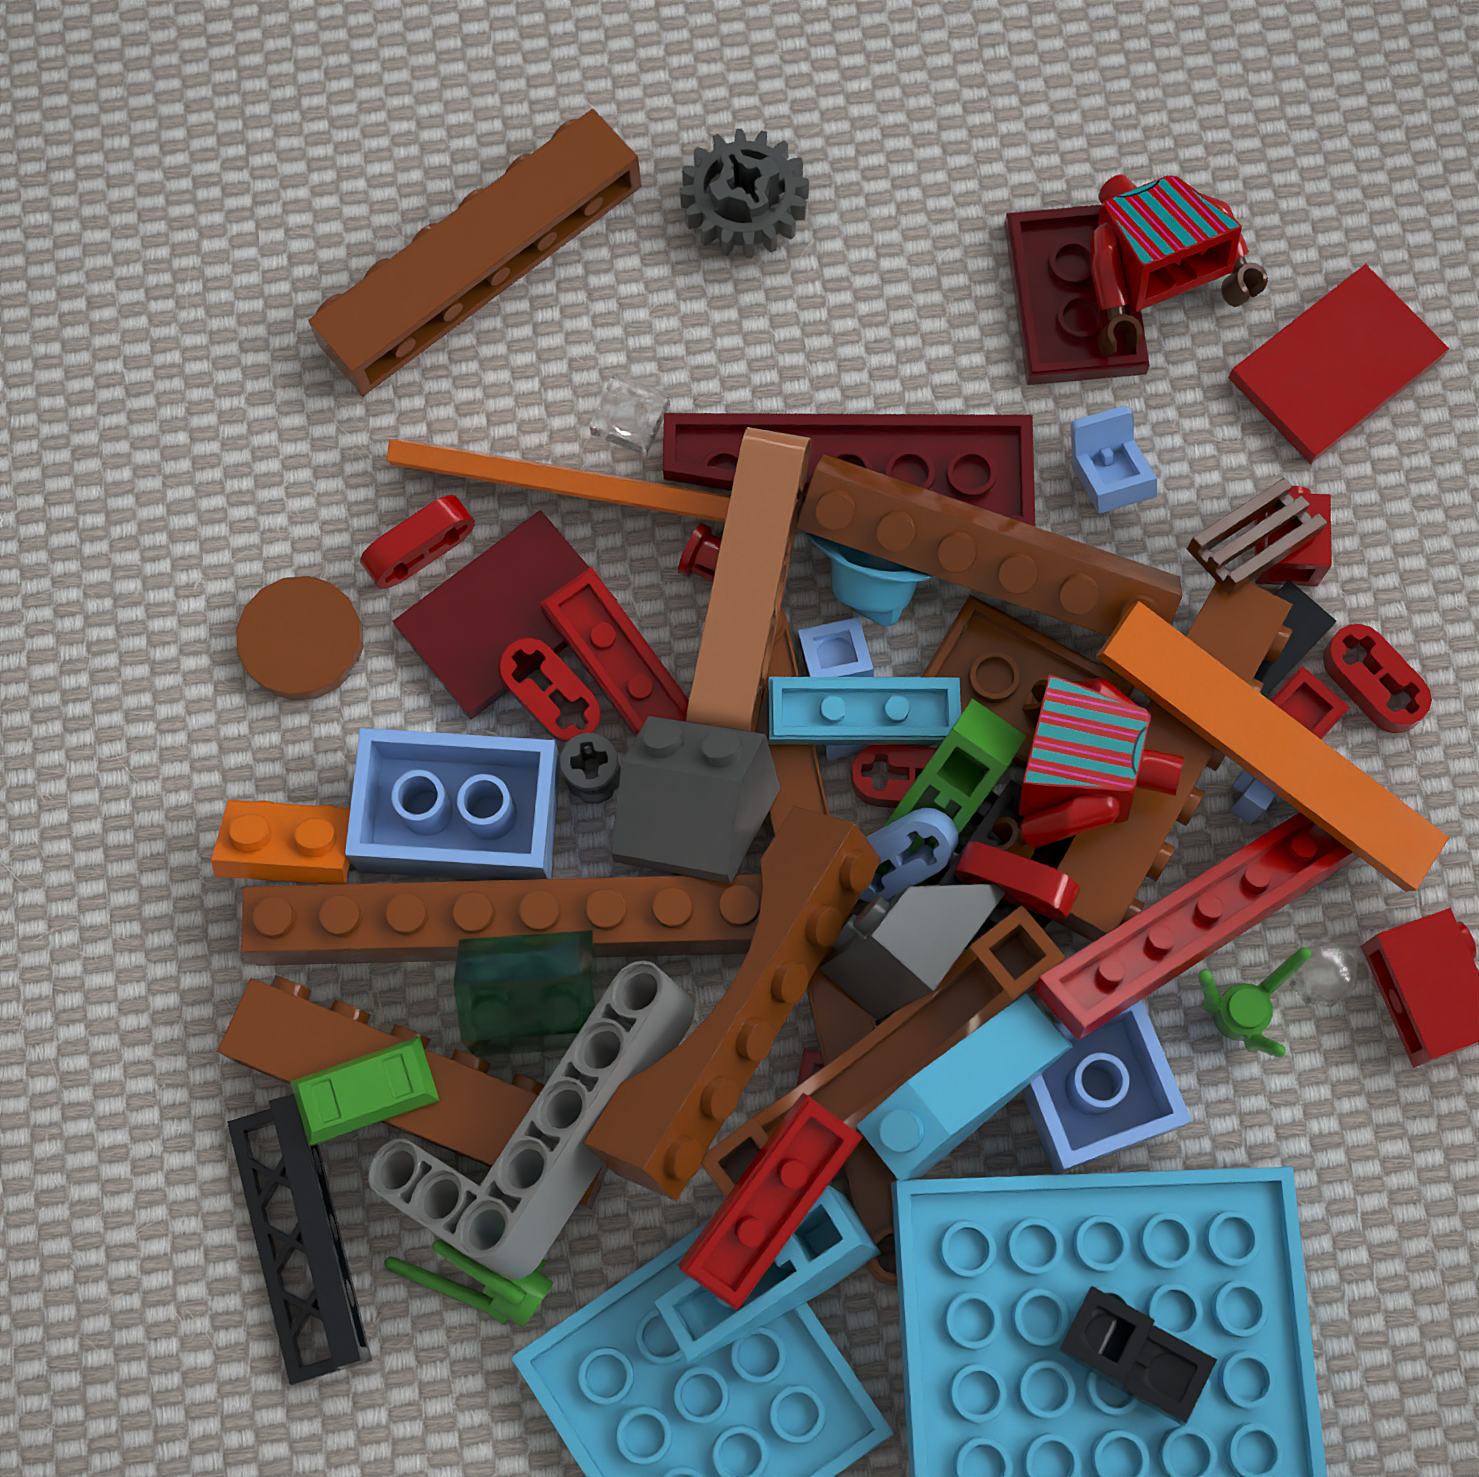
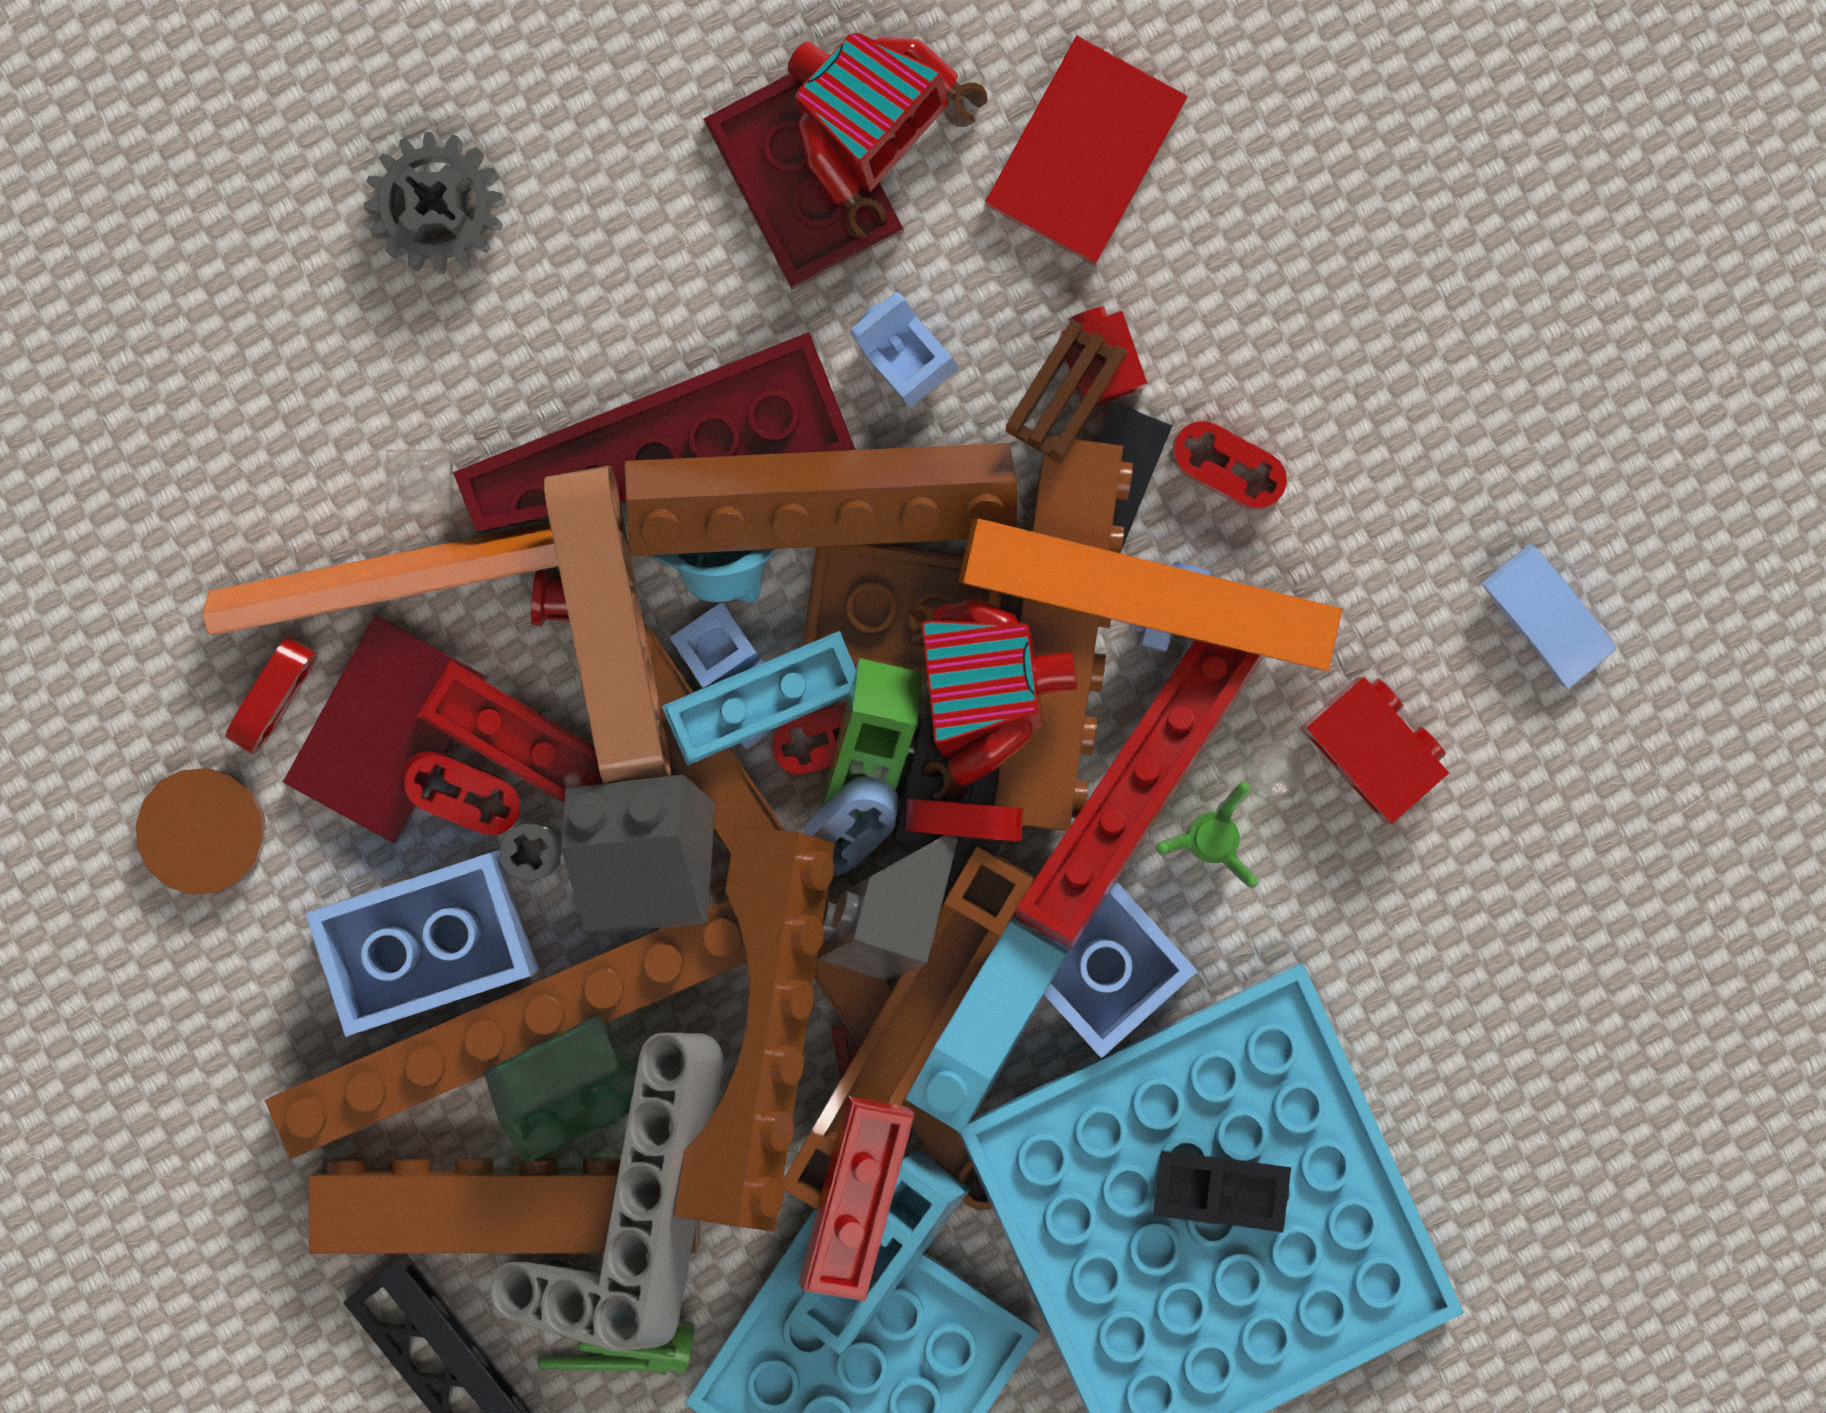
camera: 25 degrees left, 15 degrees up
(282, 842) = (280, 1040): orange bracket -> none
(364, 1091) = (458, 1235): bright green tile -> none
(476, 251) = (195, 371): dark orange brick -> none
(1310, 702) = (1171, 524): red tile -> none

